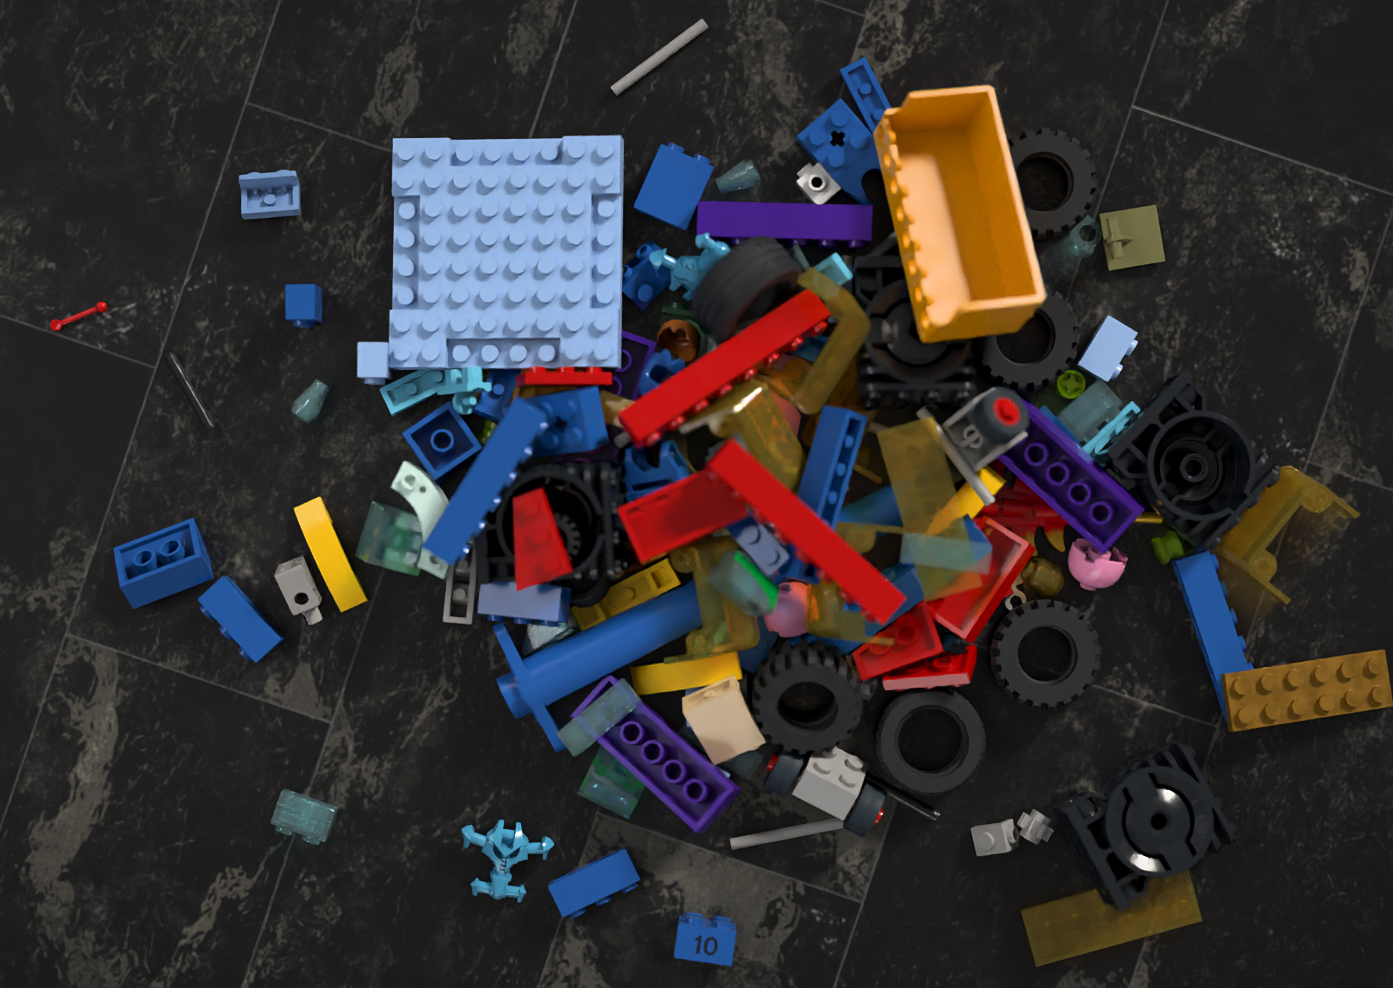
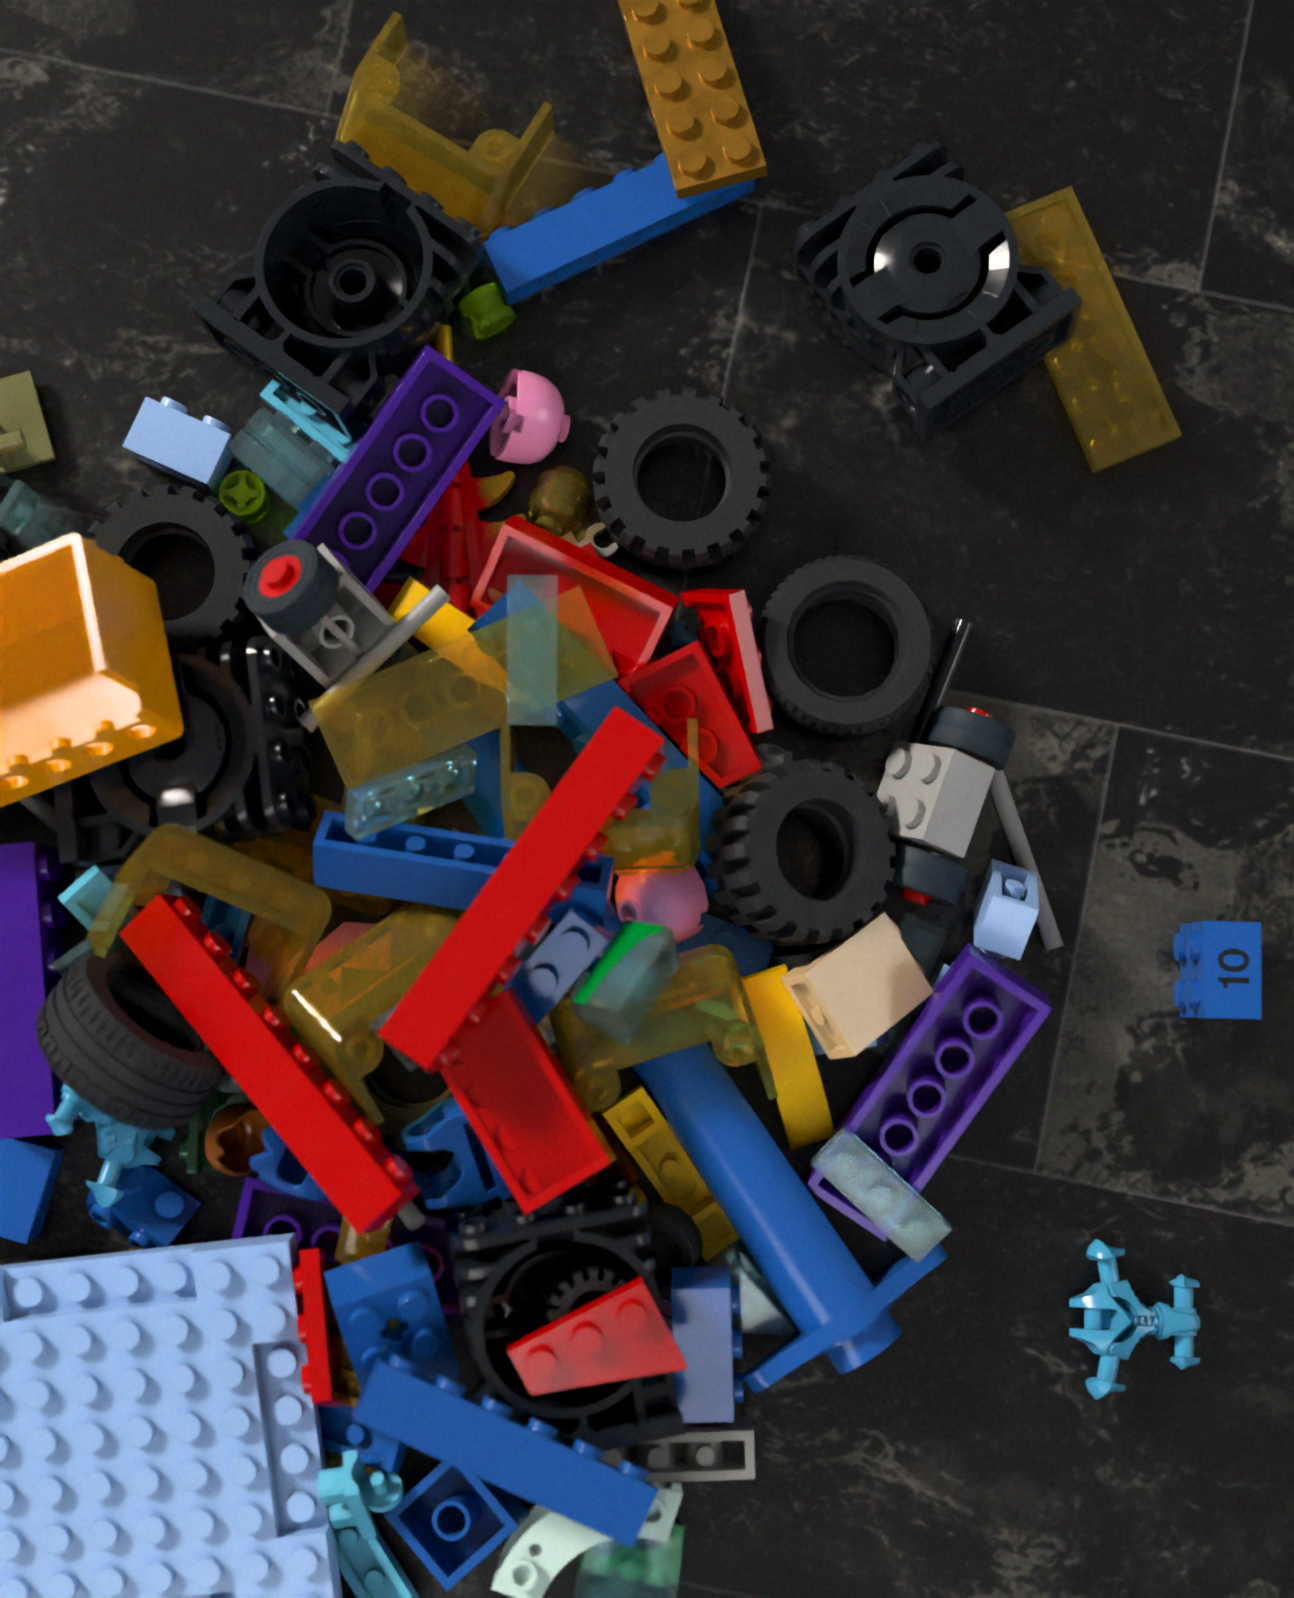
camera: 105 degrees left, 5 degrees down
(595, 882) = (1150, 1163): blue brick -> none
(611, 784) = (988, 1158): clear light blue slope -> none
(757, 815) = (1005, 910): none -> light blue brick
(872, 469) = (410, 792): none -> clear light blue plate
(995, 838) = (986, 525): light grey bracket -> none
(1035, 827) = (960, 463): light grey gear -> none

